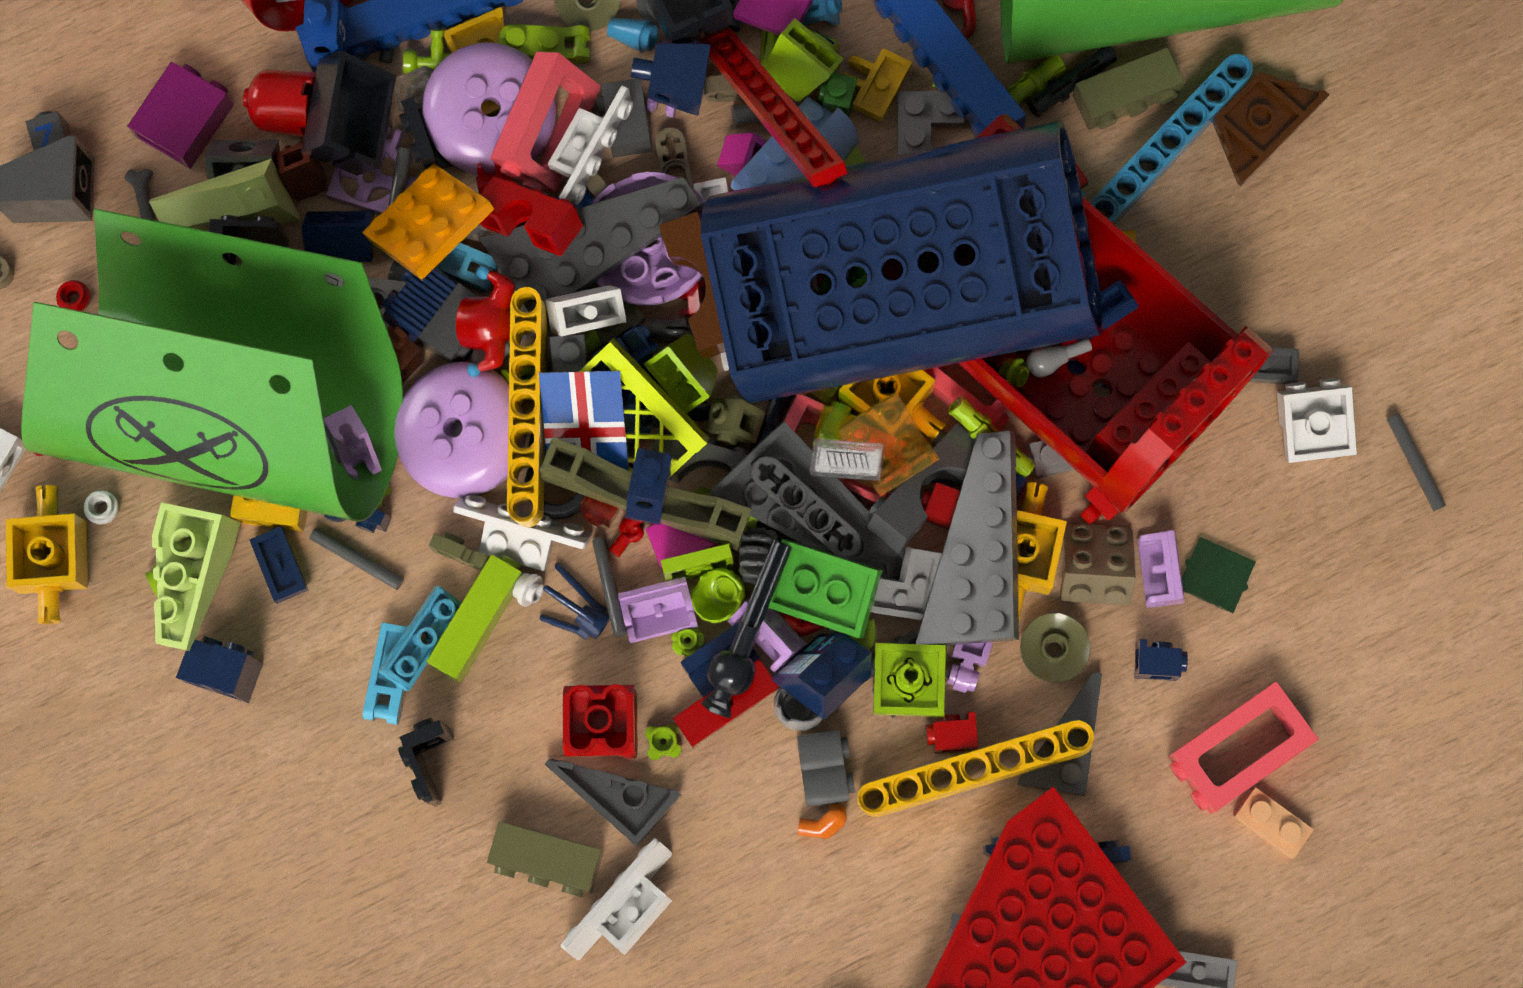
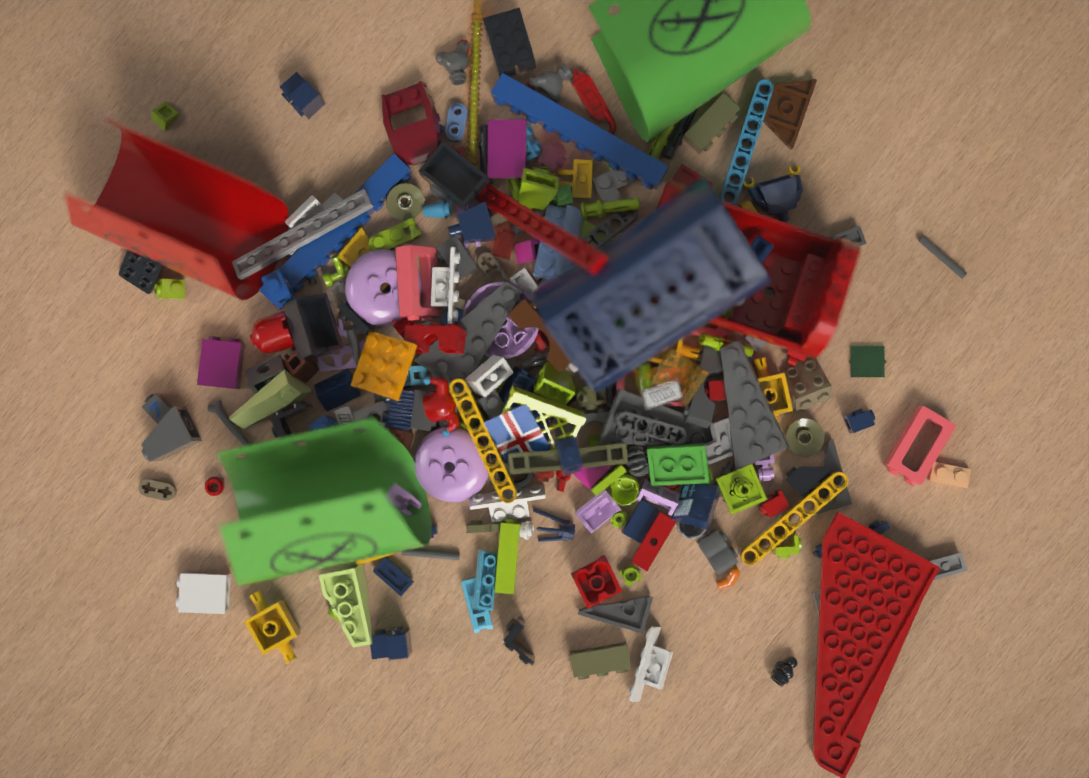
camera: 30 degrees left, 10 degrees up
(92, 503) = (280, 588): white plate -> none
(609, 586) = (566, 509): dark grey bar -> none
(709, 127) = (504, 244): none -> clear red brick
(731, 669) = (651, 526): black piece -> none
(853, 30) = (553, 156): none -> clear pink brick
(890, 139) = (601, 208): none -> lime pin
(937, 819) = (785, 551): none -> lime bracket
(1027, 712) = (805, 478): none -> black slope
(1161, 569) = (839, 373): lavender hinge -> none
(1185, 240) = (777, 194): none -> dark blue torso
(1317, 420) = (885, 259): white plate -> none

